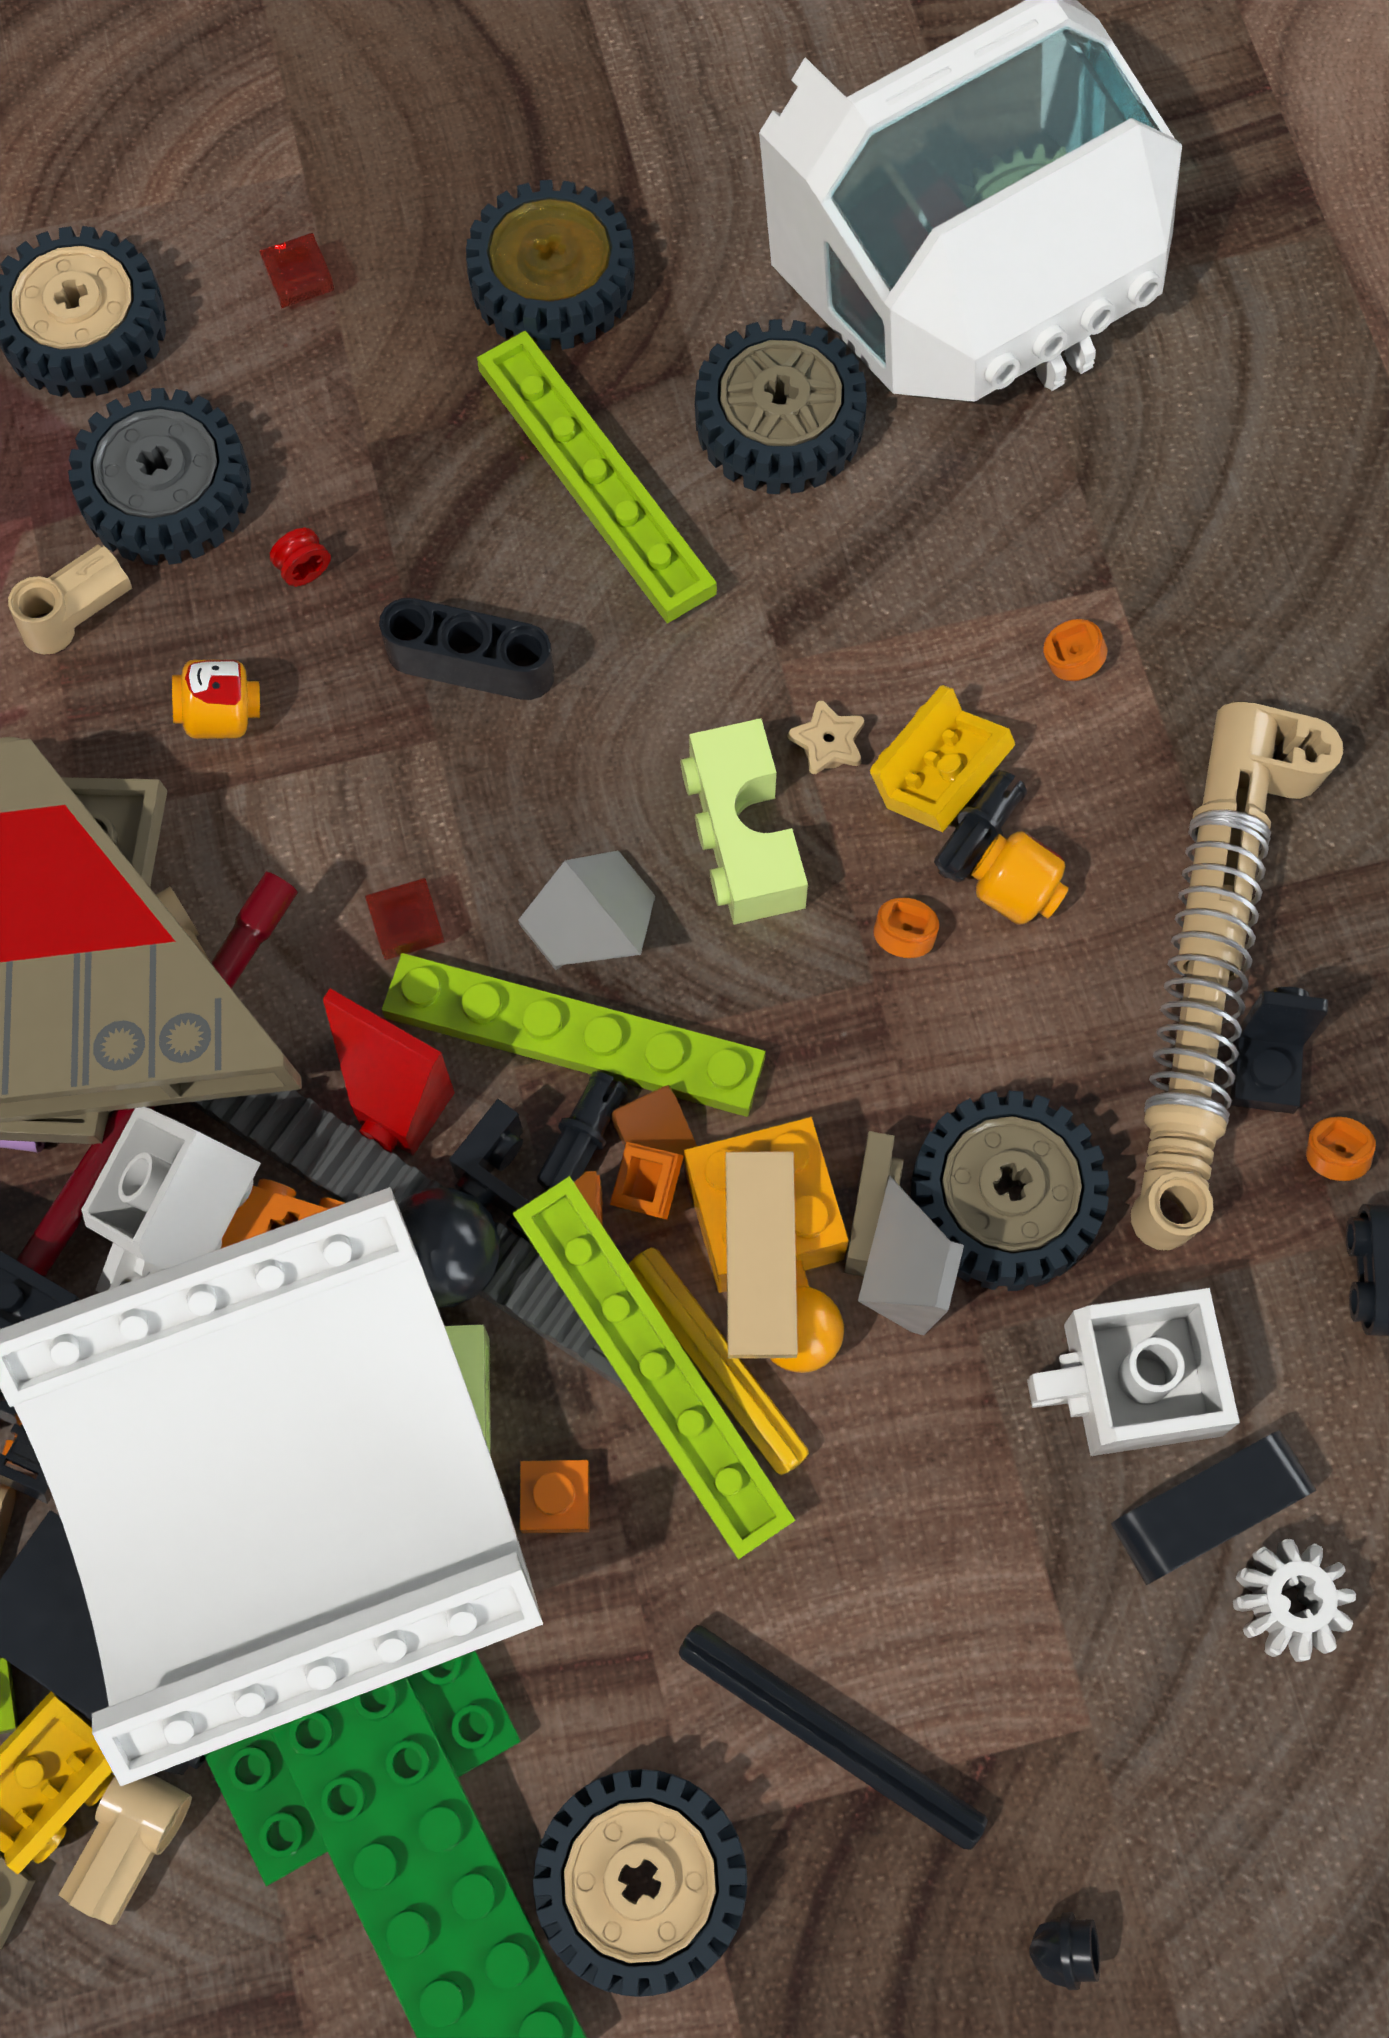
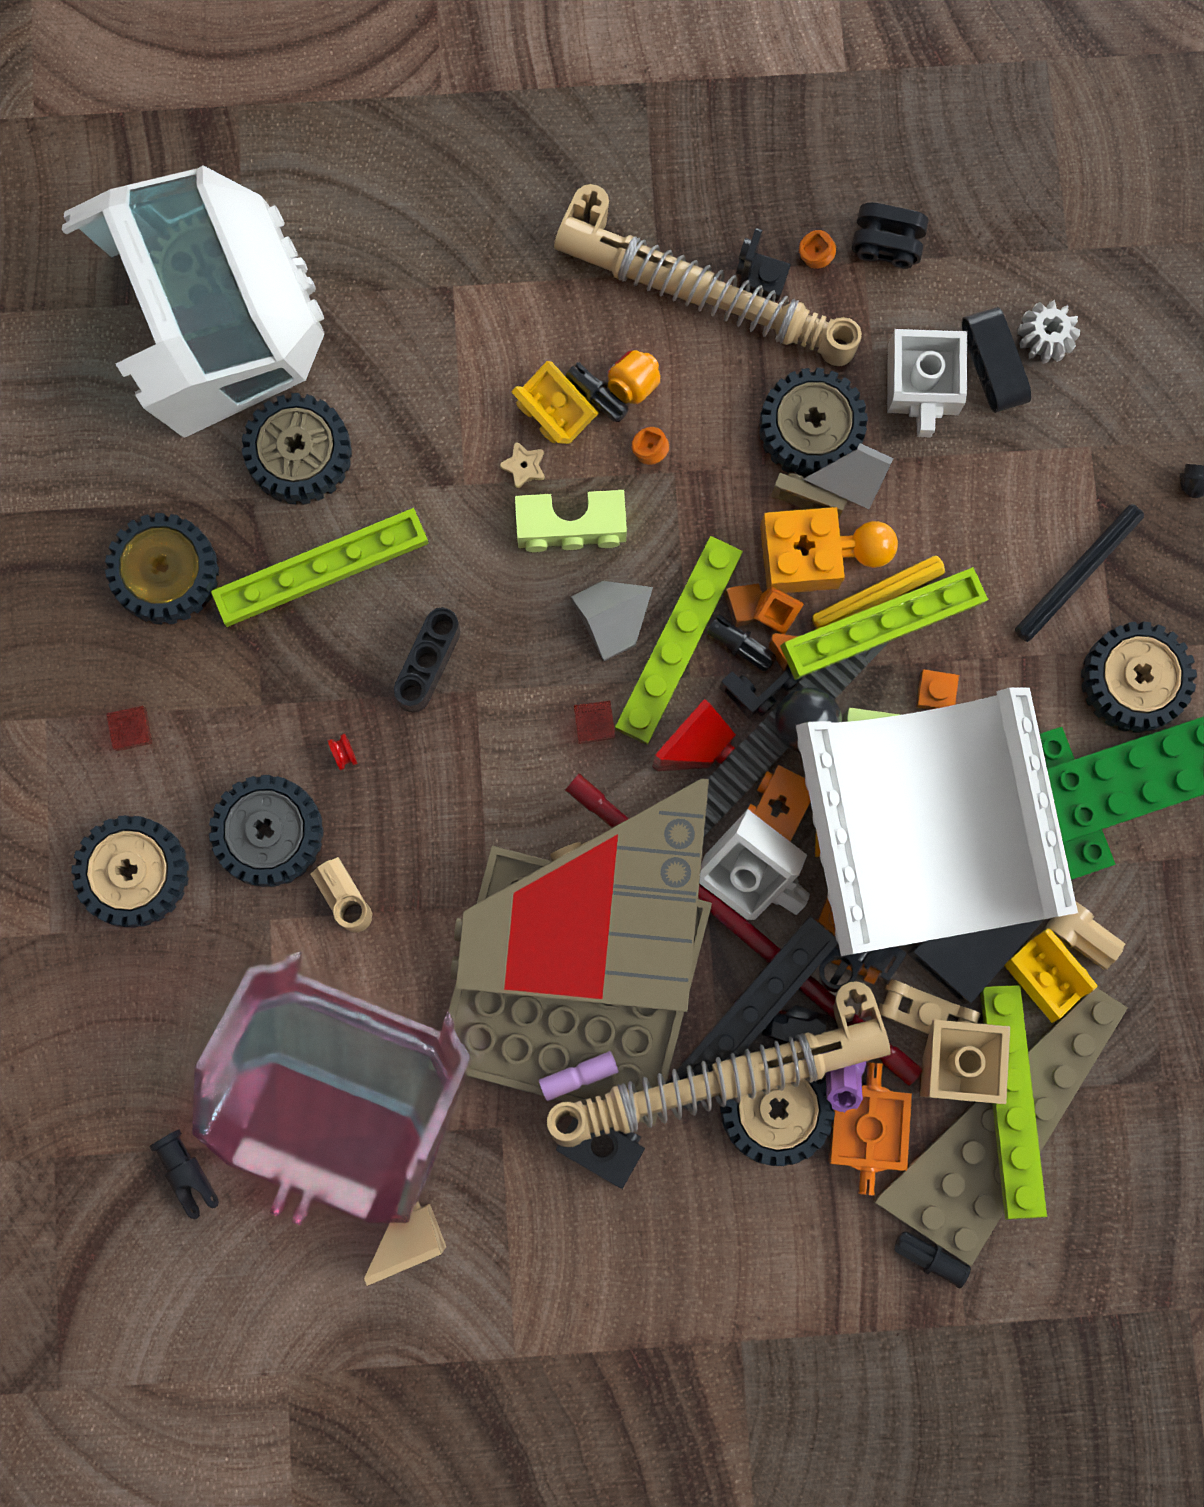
camera: 85 degrees left, 10 degrees up
(214, 699) = (432, 813): light orange head -> none
(761, 1255) = (842, 550): tan tile -> none
(1075, 650) = (495, 316): orange tile -> none

